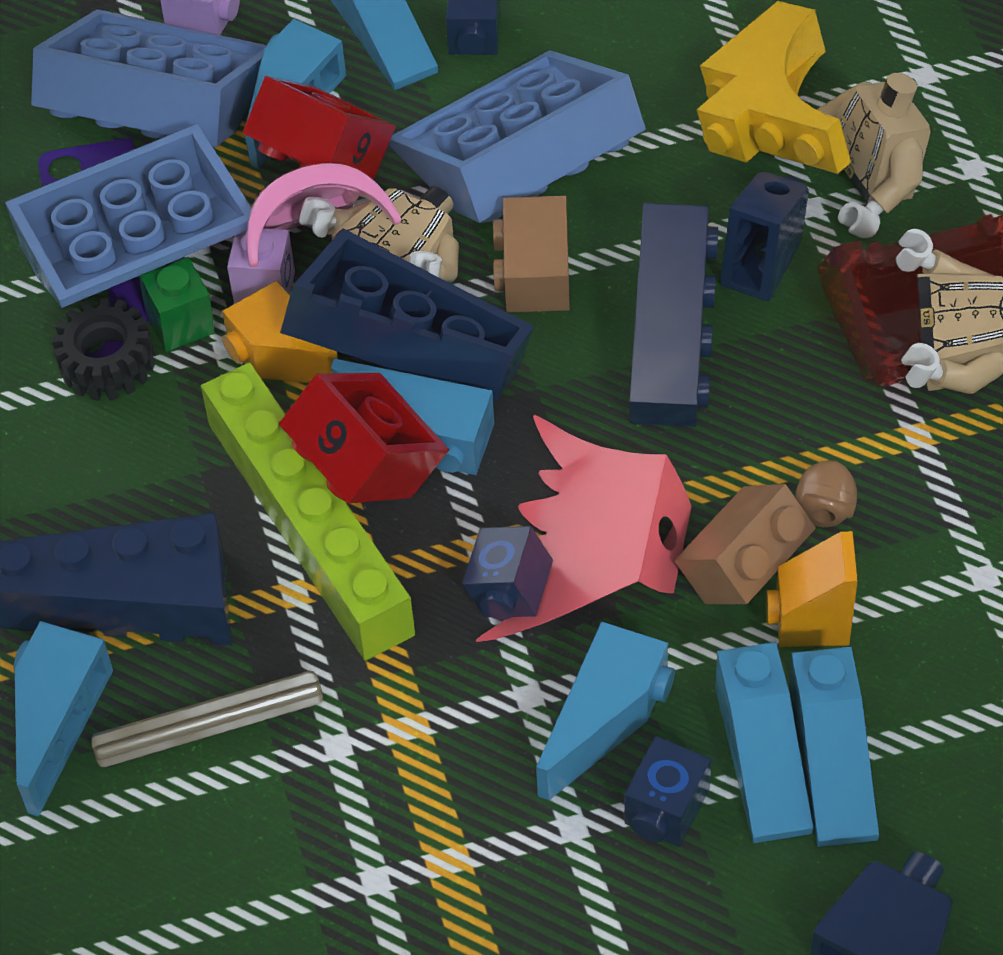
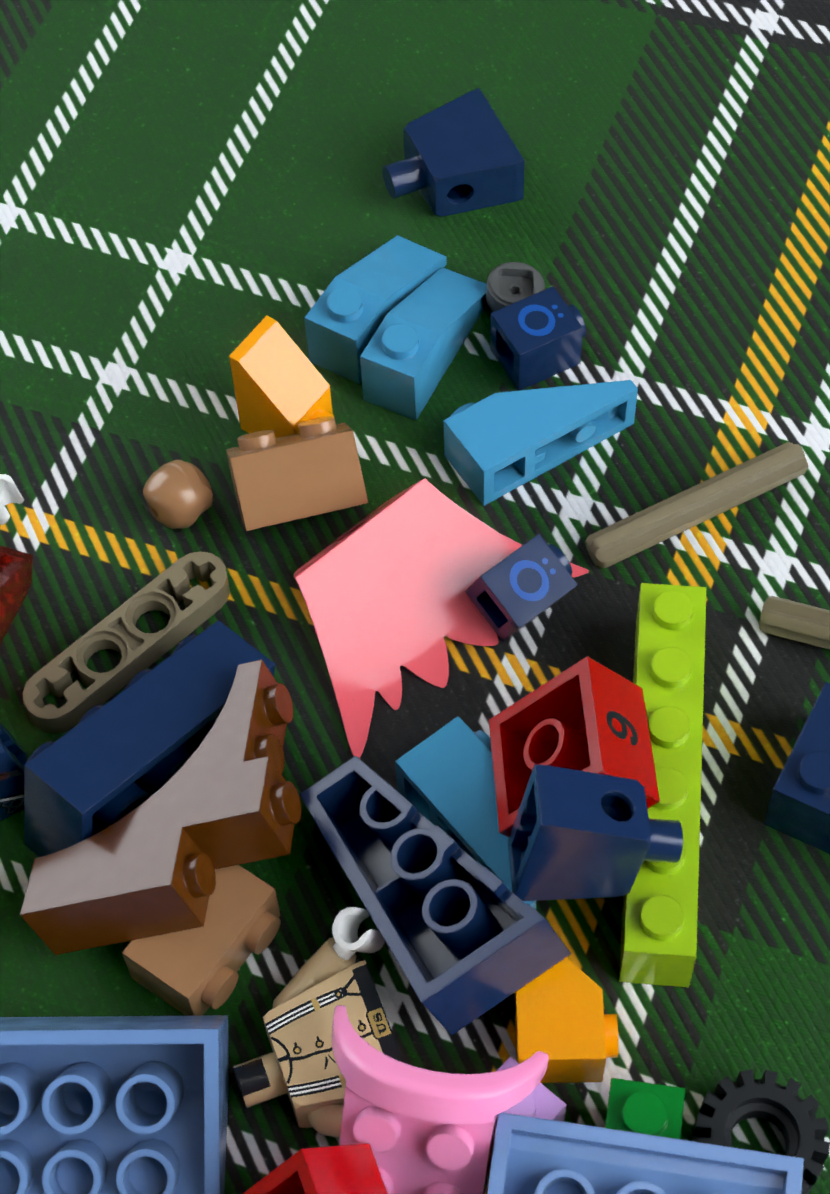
camera: 145 degrees left, 5 degrees up
(312, 346) = (584, 836): none -> dark blue torso
(427, 744) = (696, 505): none -> dark tan axle
(572, 260) = (161, 859): none -> reddish brown arch
(726, 833) = (512, 283): none -> dark grey tile
(761, 391) = (119, 634): none -> dark tan beam

